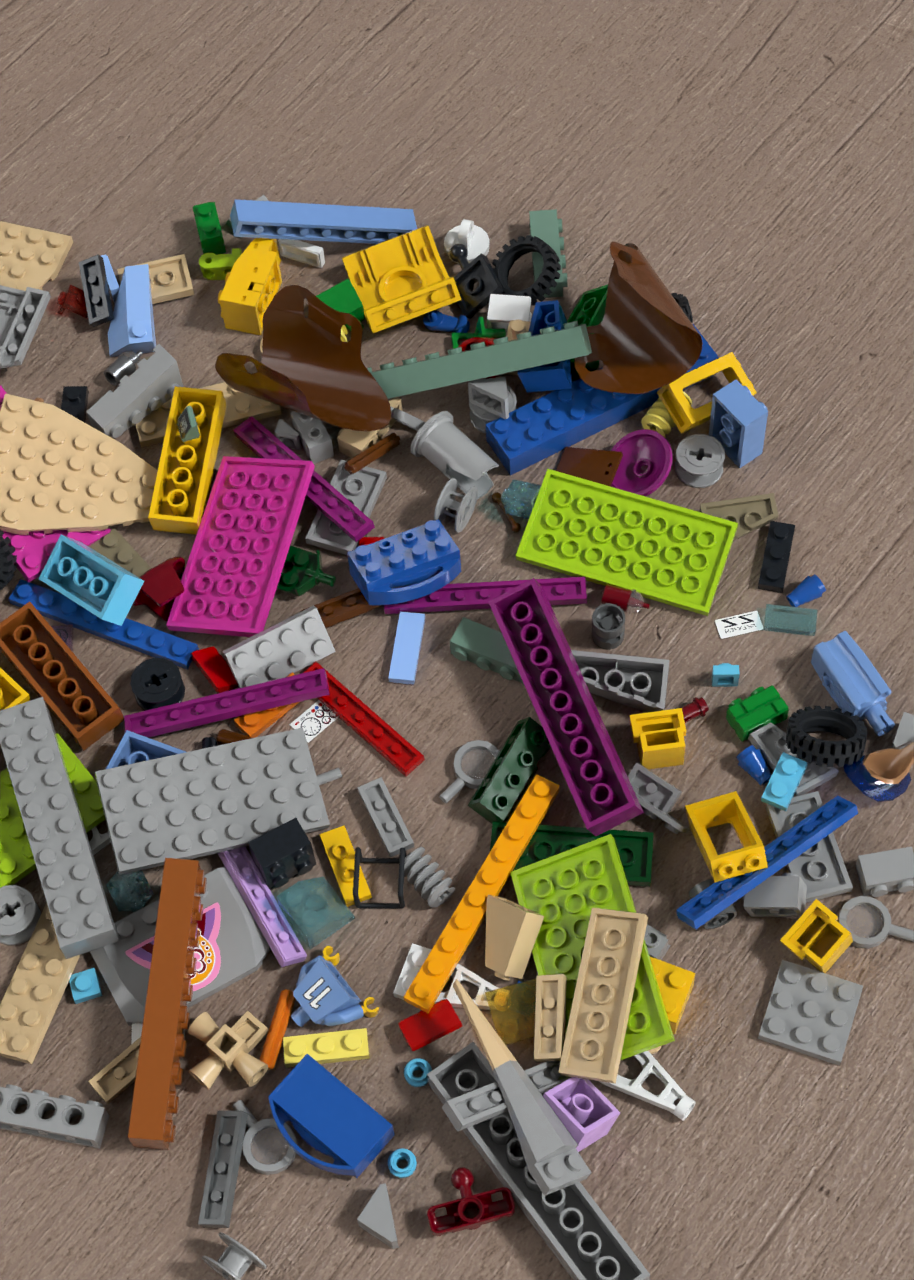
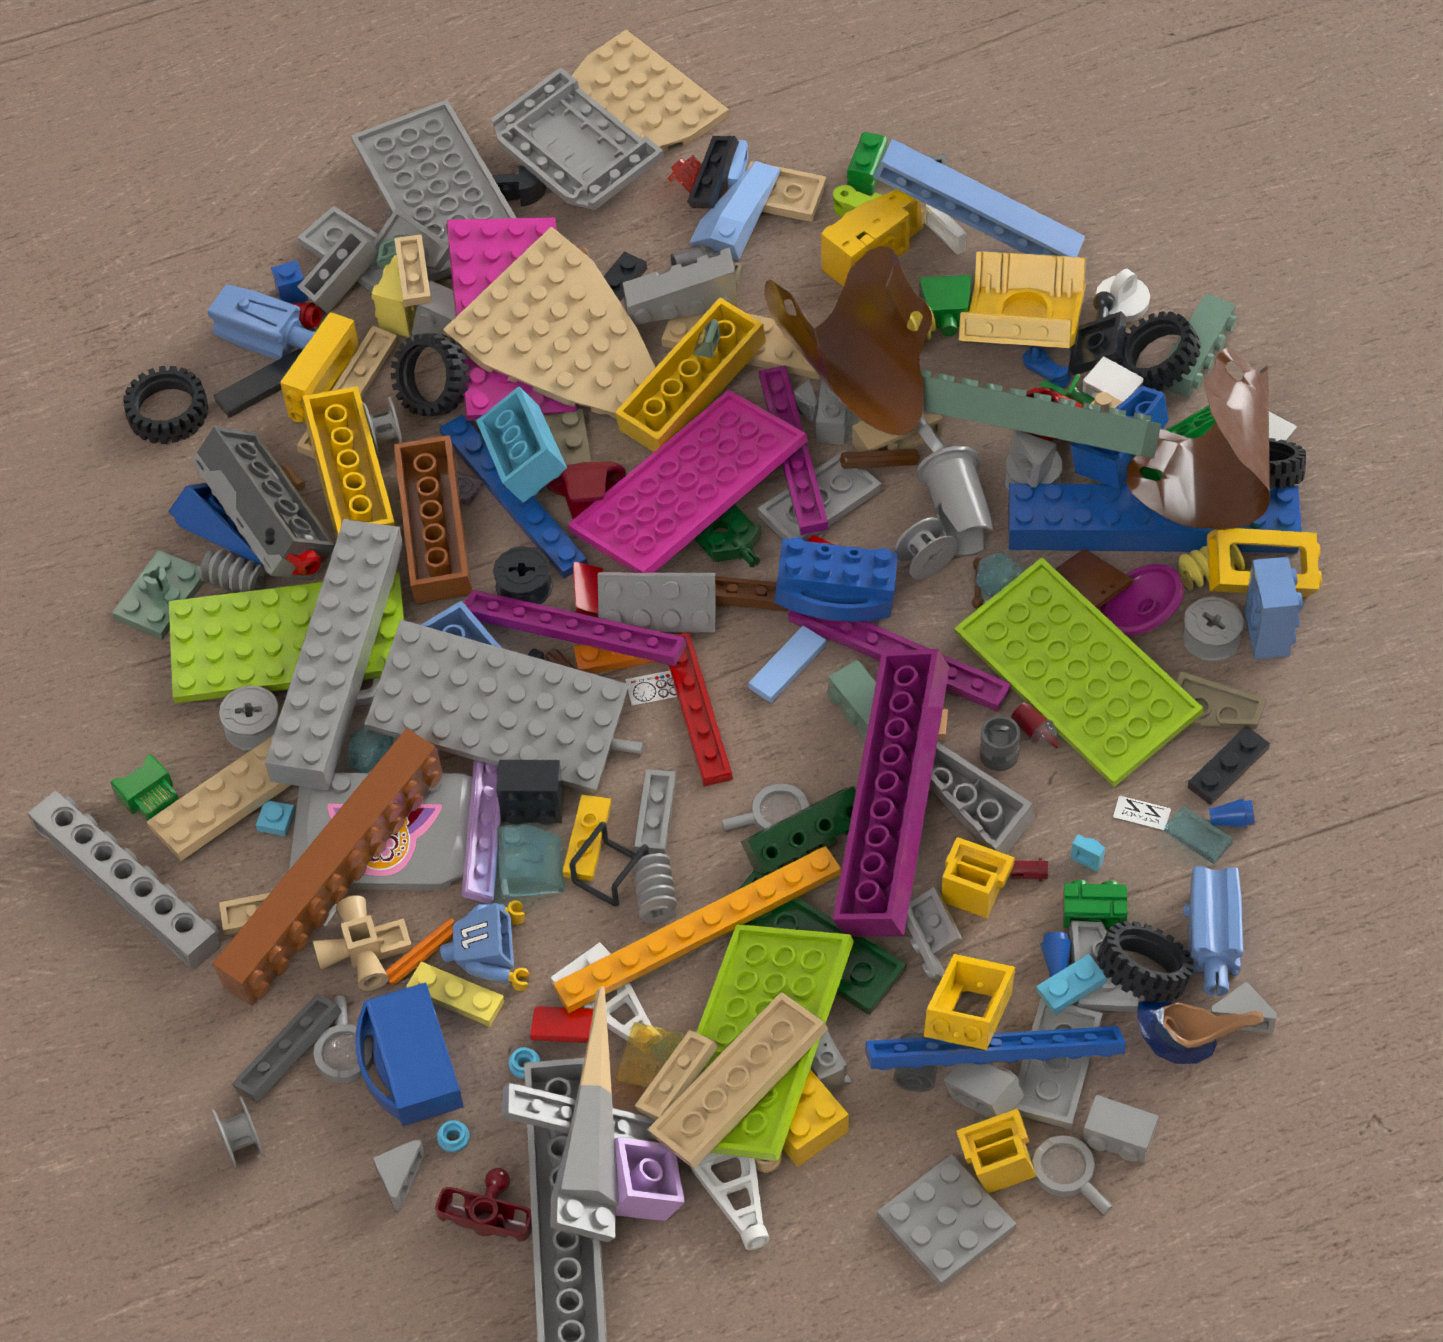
camera: 30 degrees right, 5 degrees down
(509, 936) = (692, 983): tan slope -> none

